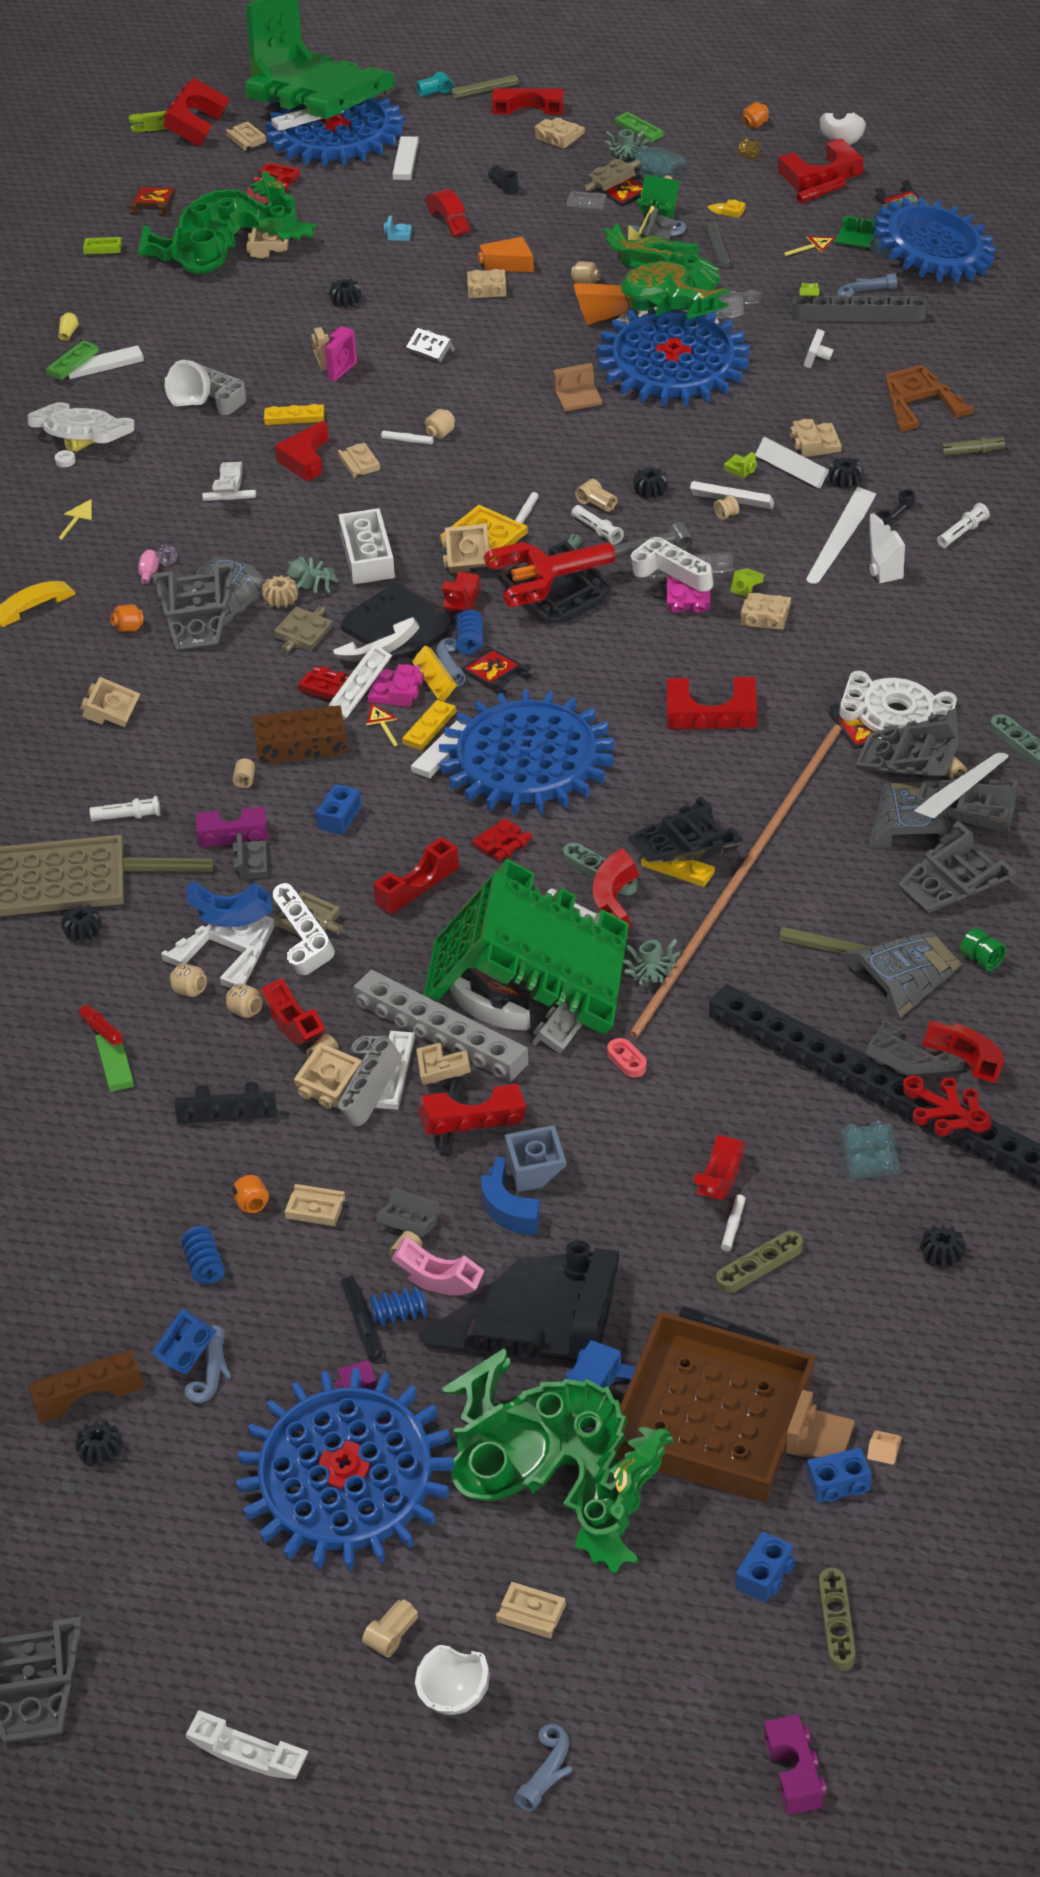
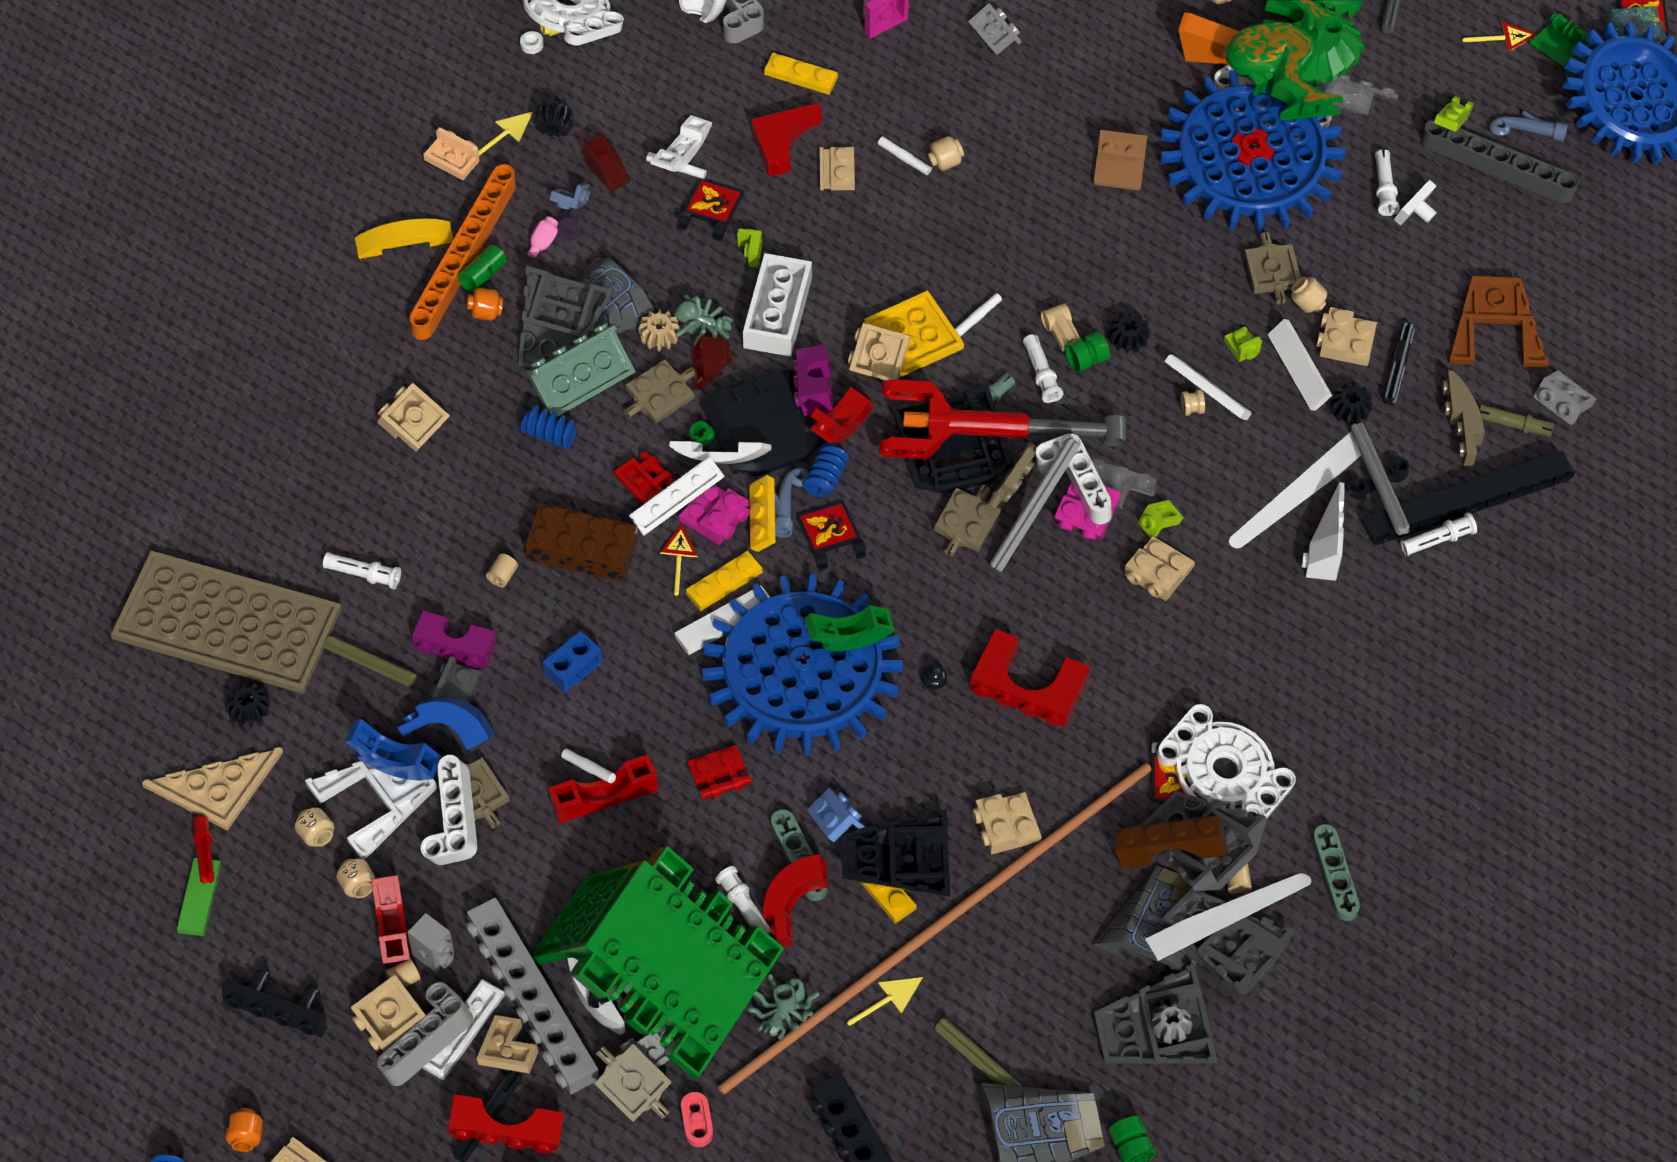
camera: 20 degrees right, 15 degrees up
(43, 537) = (452, 154): none -> light nougat bracket
(88, 594) = (462, 251): none -> orange beam
(91, 986) = (217, 788): none -> tan tile
(111, 596) = (482, 268): none -> green pin
(114, 492) = (554, 119): none -> black gear
(154, 538) = (568, 199): none -> sand blue bracket
(171, 507) = (605, 163): none -> clear red slope
(227, 673) = (549, 428): none -> blue piece
(232, 630) = (580, 370): none -> sand green bracket
(264, 865) = (458, 714): none -> blue arch
(272, 509) = (712, 204): none -> flag
(320, 518) = (752, 241): none -> lime bracket
(332, 594) = (710, 359): none -> clear red slope
(337, 1014) = (431, 943): none -> light grey brick
(354, 635) = (697, 428): none -> green bush
(394, 867) = (588, 766): none -> white piece
(423, 579) = (812, 377): none -> magenta arch
(558, 710) = (851, 631): none -> green arch
(560, 1048) = (632, 1082): none -> dark tan plate
(598, 629) = (966, 520): none -> dark tan plate
(614, 829) = (834, 814): none -> medium blue bracket
(620, 586) = (1013, 478): none -> dark tan plate
(626, 502) = (1090, 350): none -> green wheel
(635, 727) = (934, 677): none -> black plate
(649, 593) = (1034, 504): none -> light grey axle
(733, 416) = (1272, 268): none -> dark tan plate
(735, 926) = (898, 992): none -> light yellow piece
(750, 795) = (1006, 822): none -> tan plate
(772, 420) = (1309, 294): none -> tan head
(787, 348) = (1387, 190): none -> white pin
(864, 441) = (1398, 363): none -> black axle
(865, 768) = (1199, 836): none -> reddish brown arch
(898, 503) = (1380, 479): none -> light grey axle
(935, 452) = (1465, 414): none -> dark tan slope
(966, 862) = (1171, 1023): none -> light grey piece
(979, 490) = (1473, 496): none -> black beam
(998, 423) = (1563, 397): none -> light grey bracket

